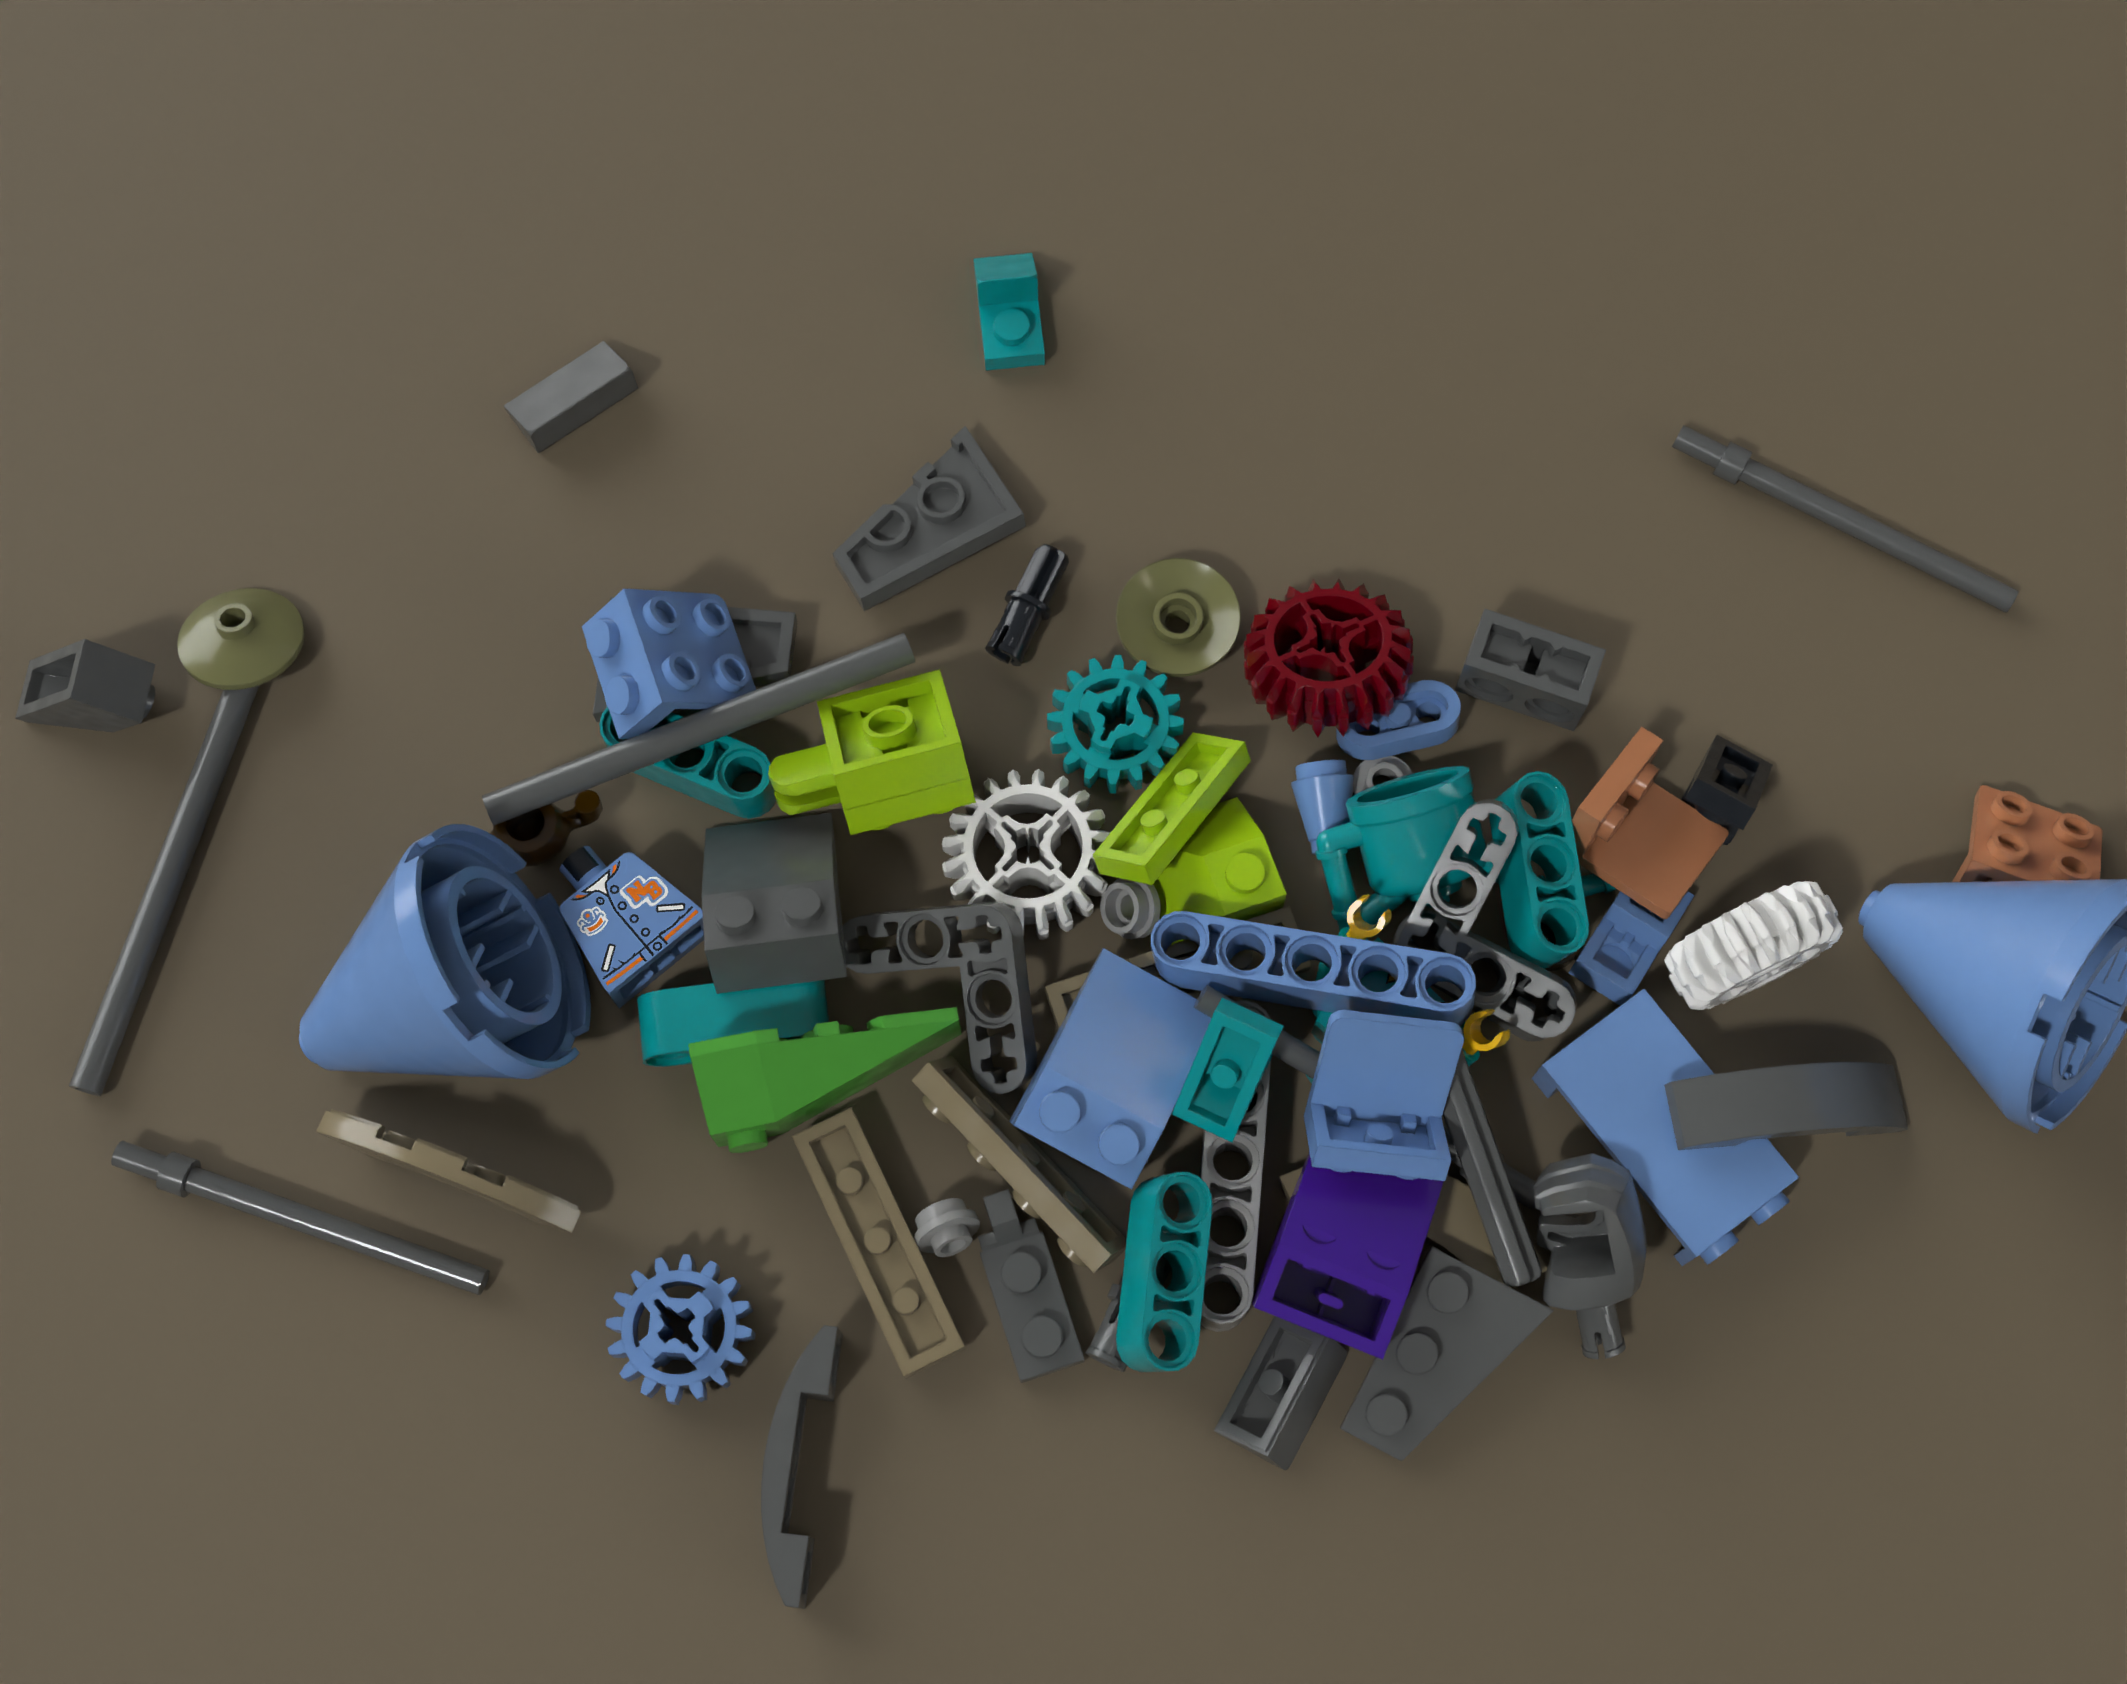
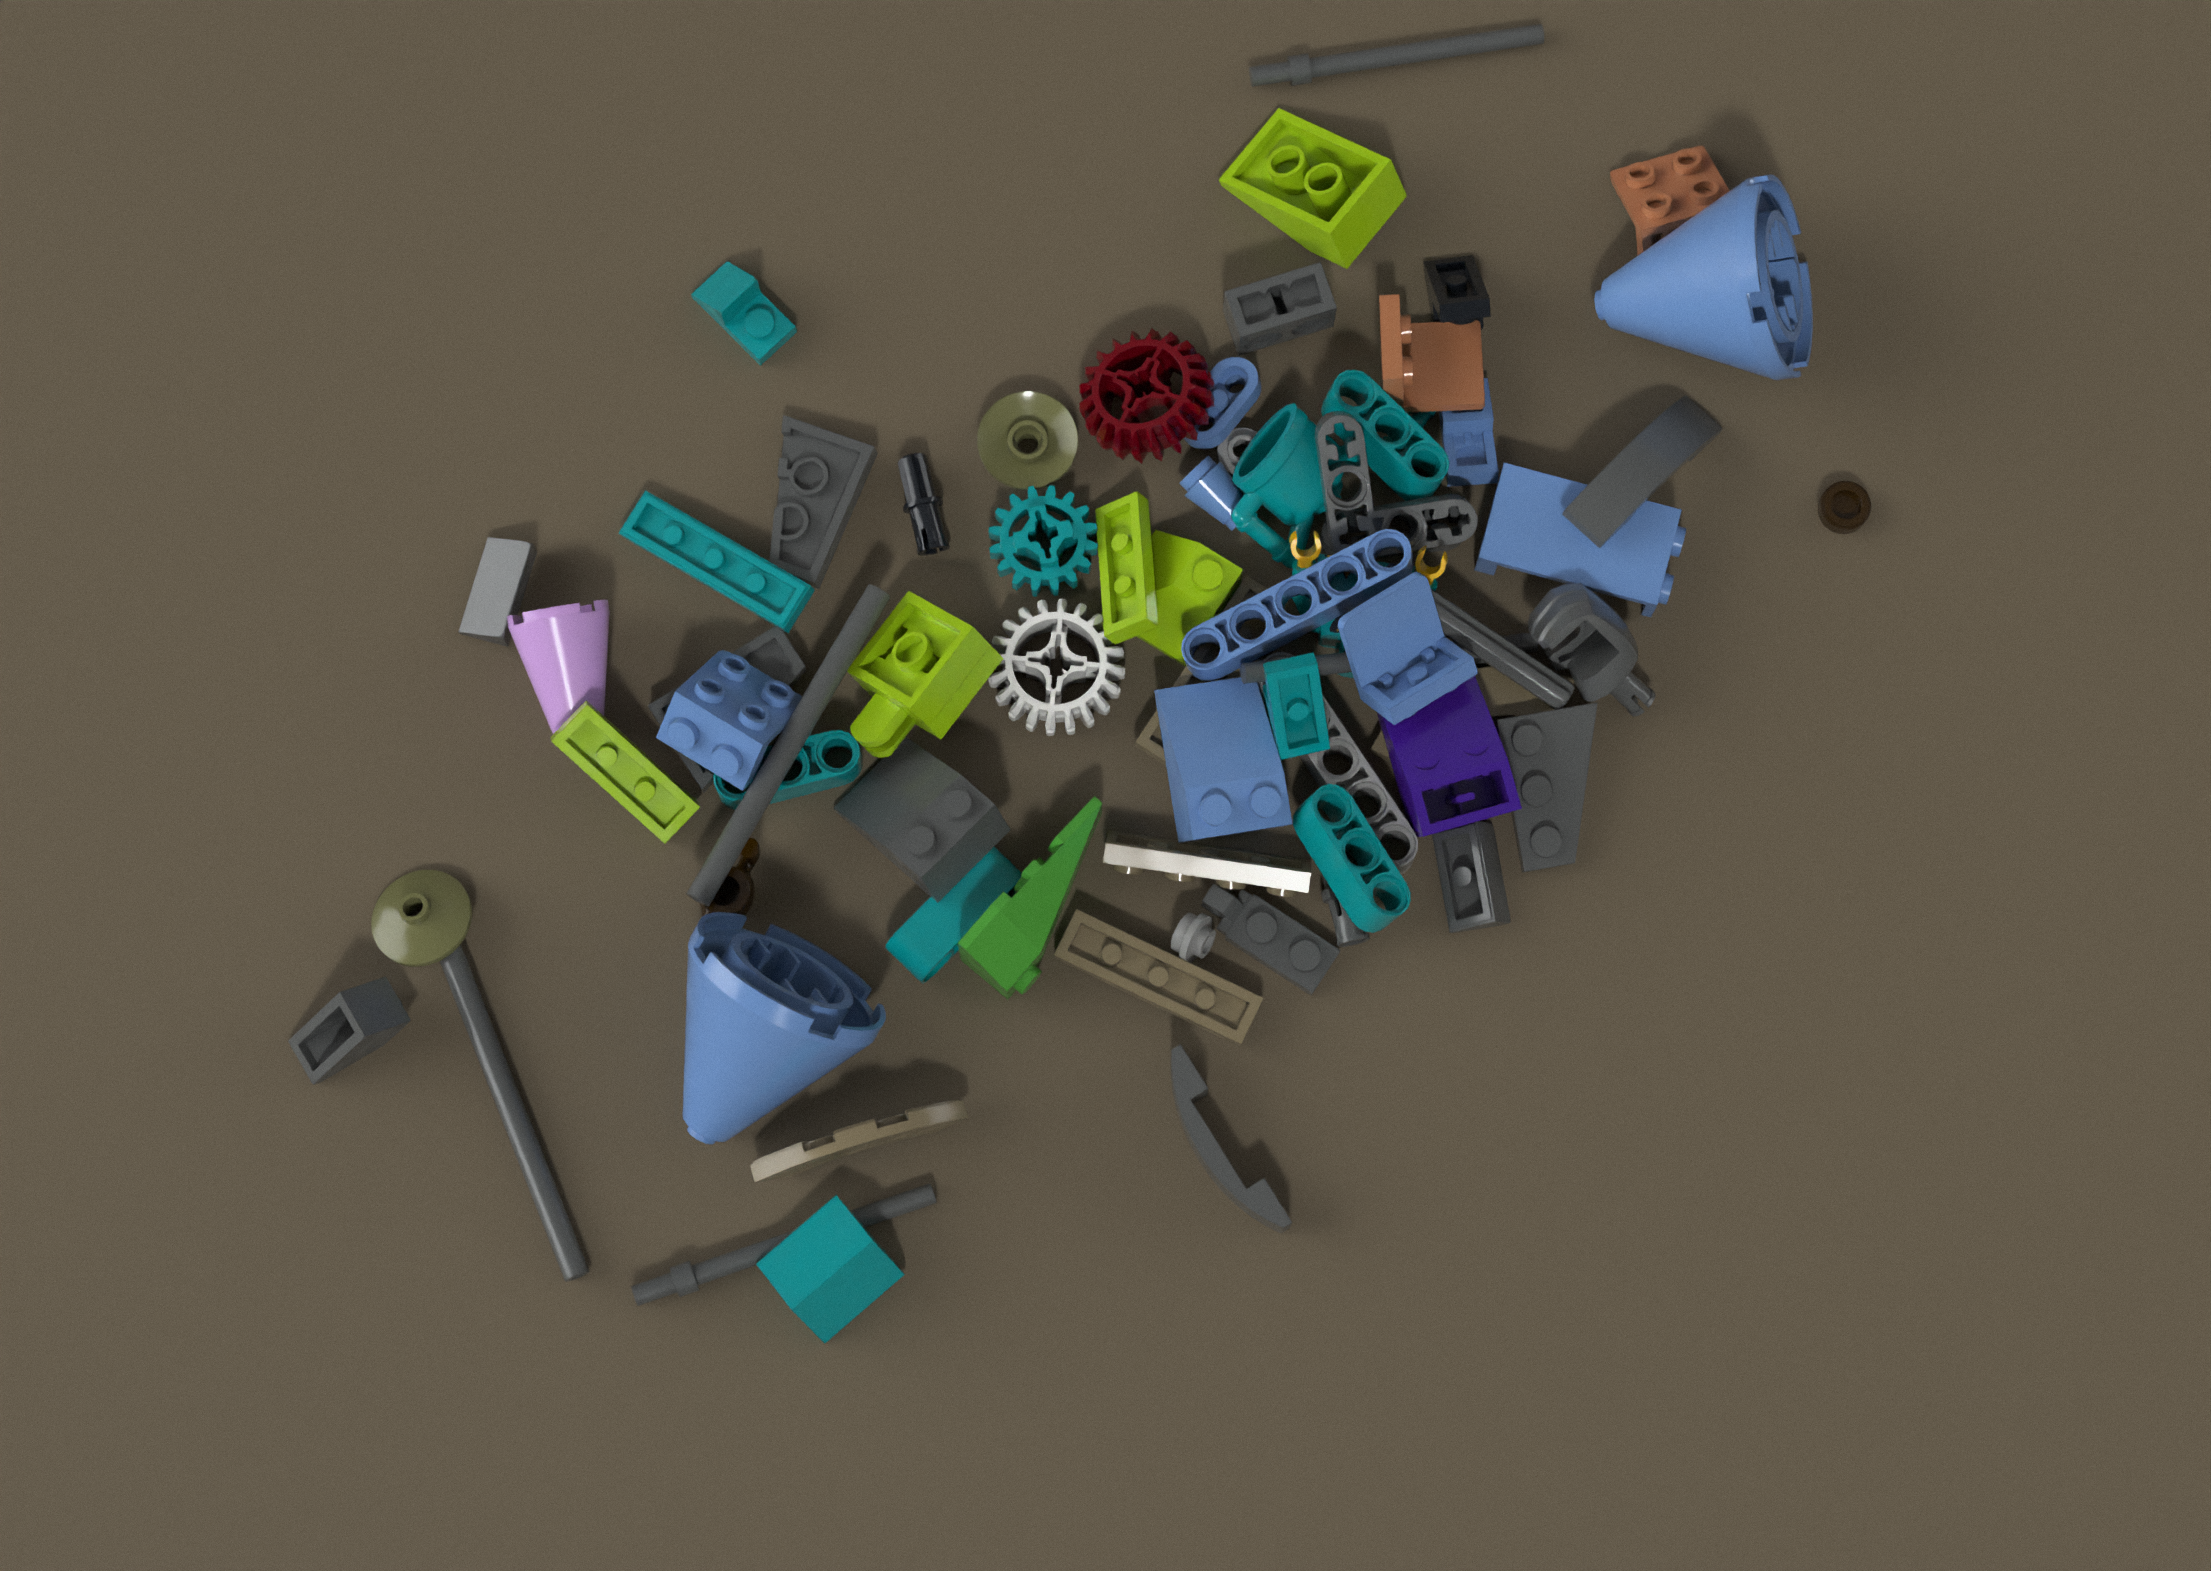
camera: 40 degrees left, 5 degrees up
(313, 1278) = (829, 1269): none -> teal slope
(532, 640) = (625, 772): none -> lime plate
(566, 500) = (564, 656): none -> lavender cone
(627, 920) = (836, 902): medium blue torso -> none
(654, 1348) = (1057, 1118): medium blue gear -> none
(788, 514) = (717, 561): none -> teal tile
(977, 964) = (1086, 760): dark grey beam -> none
(1130, 908) = (1141, 660): light grey plate -> none
(1662, 584) = (1316, 186): none -> lime slope
(1753, 945) = (1549, 385): white gear -> none
(1981, 1309) = (1844, 507): none -> dark brown tile

